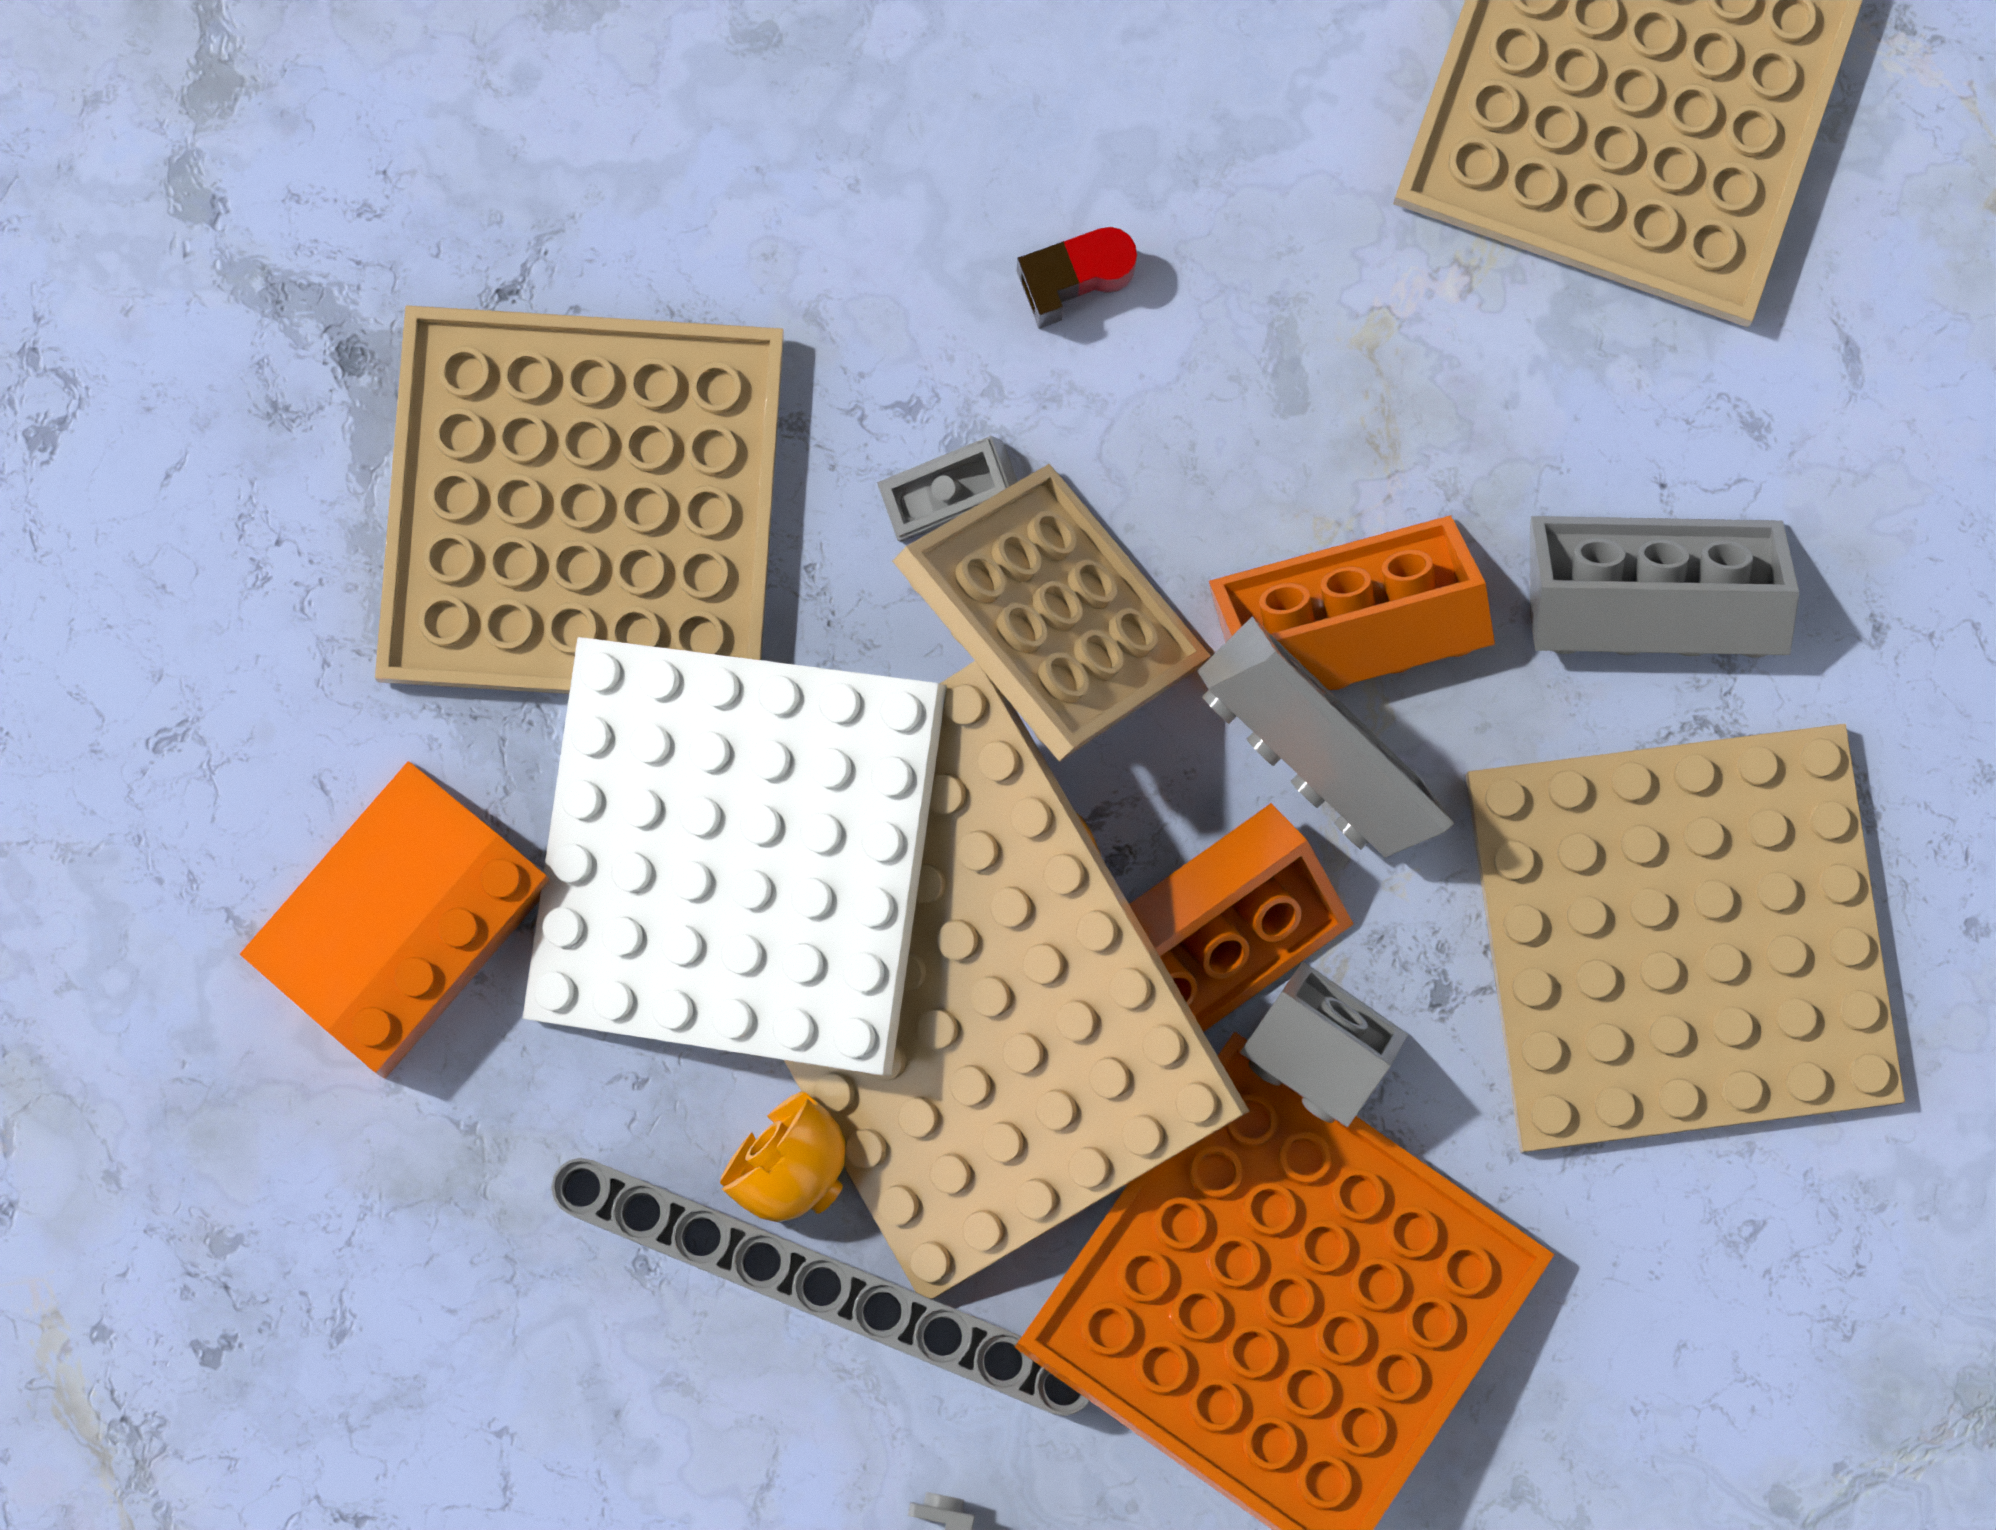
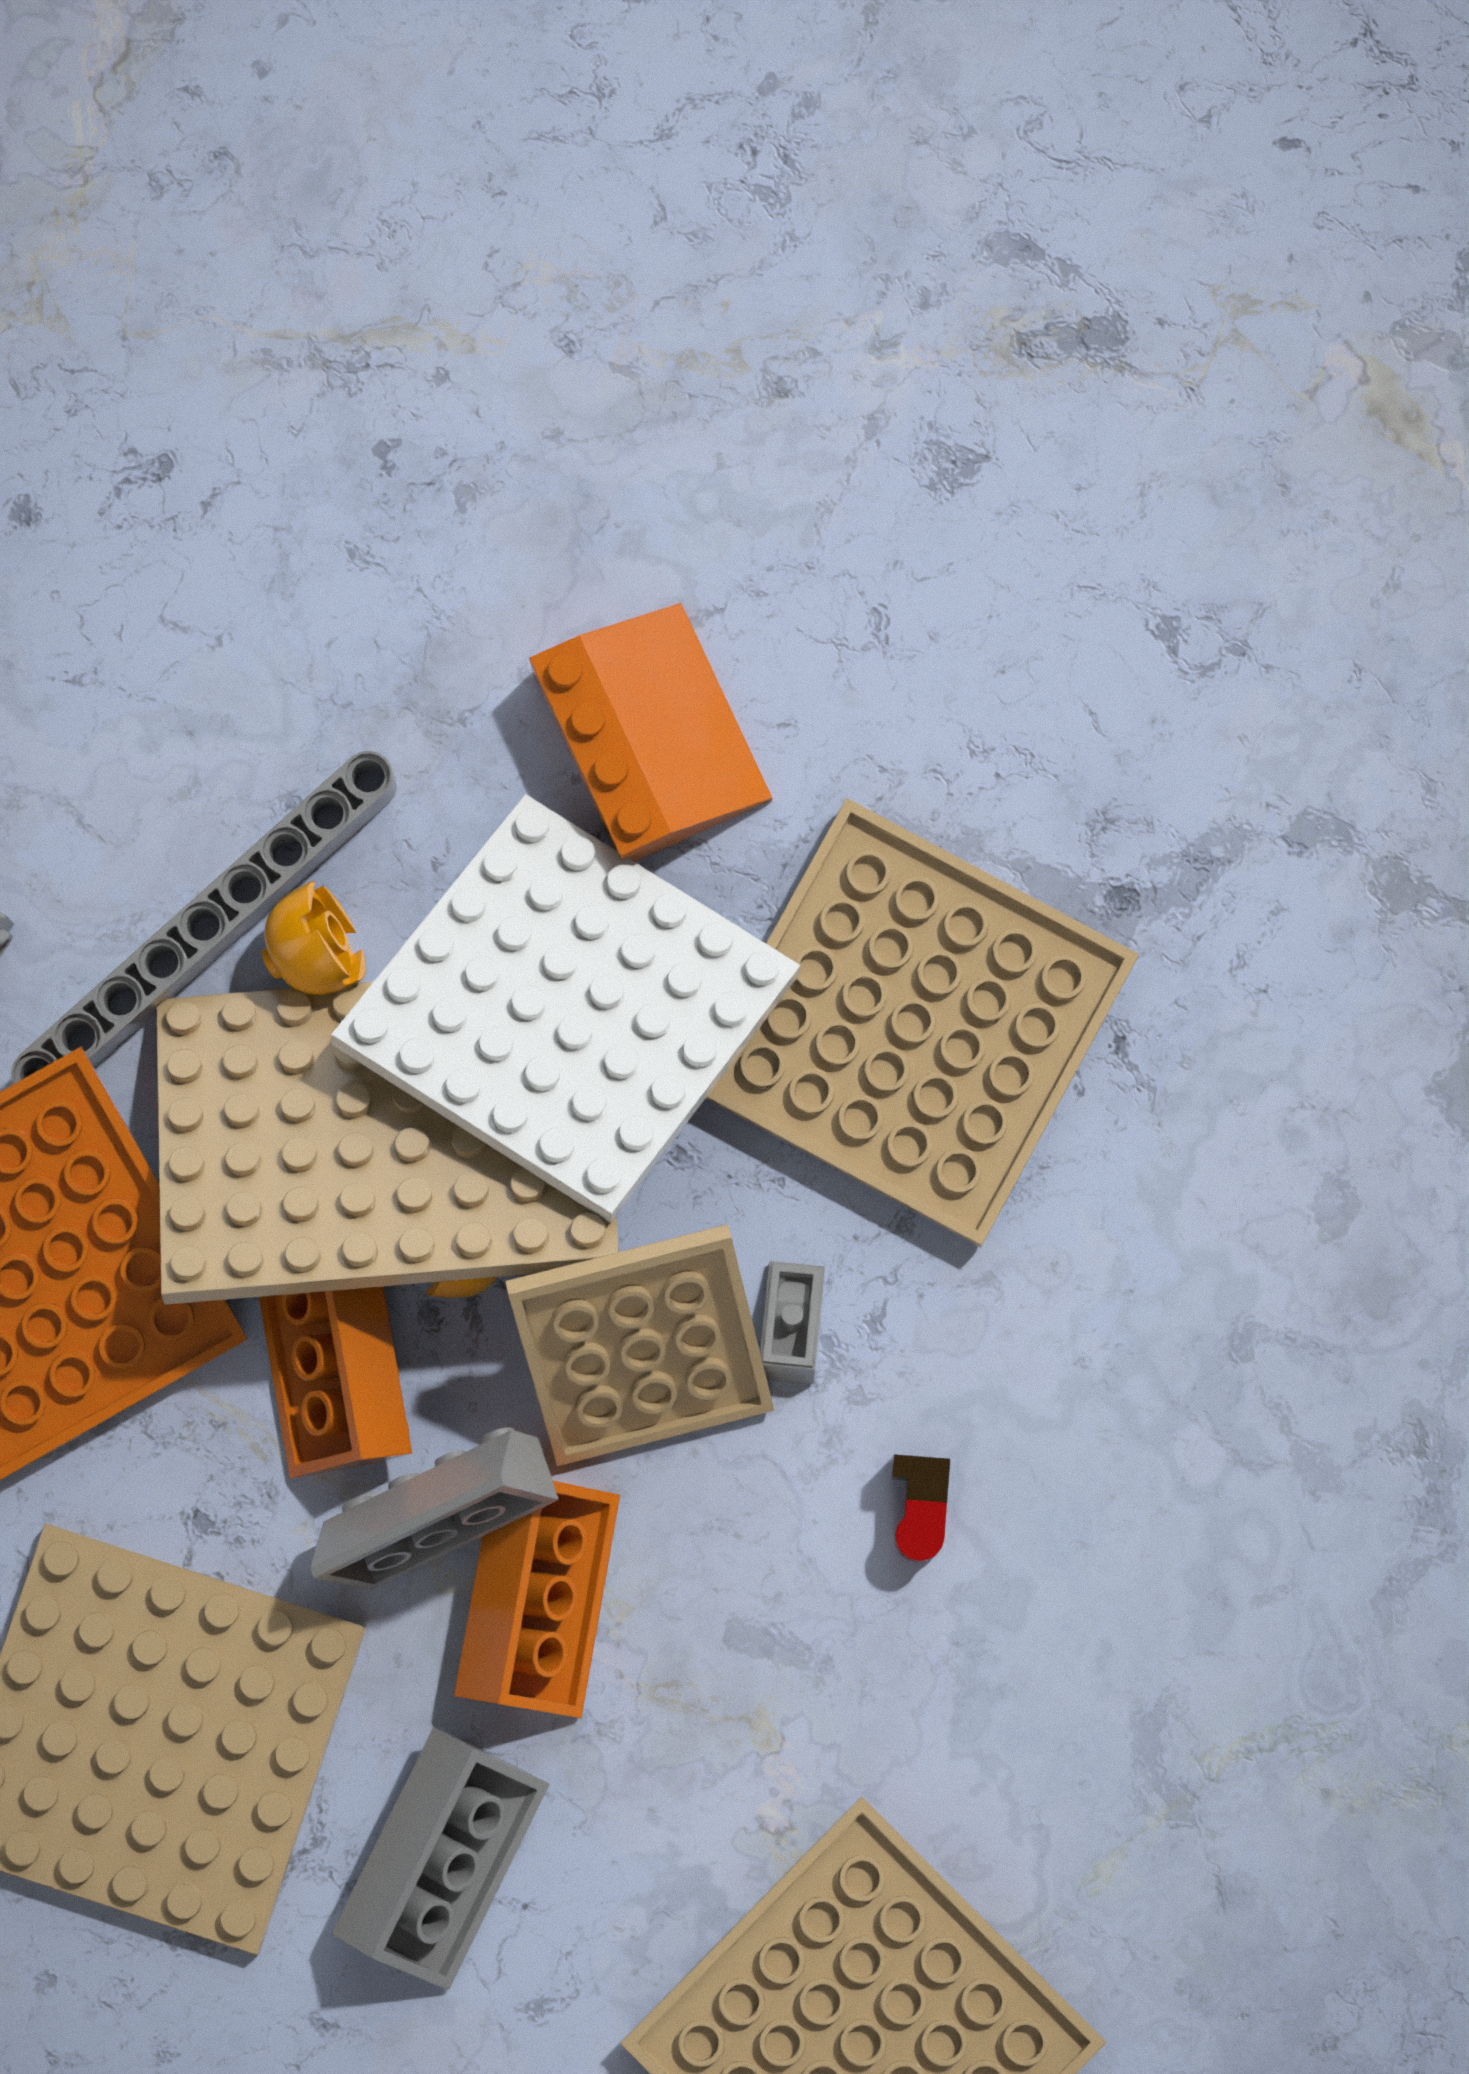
camera: 120 degrees right, 0 degrees up
(1323, 1046) = (200, 1403): light grey slope -> none

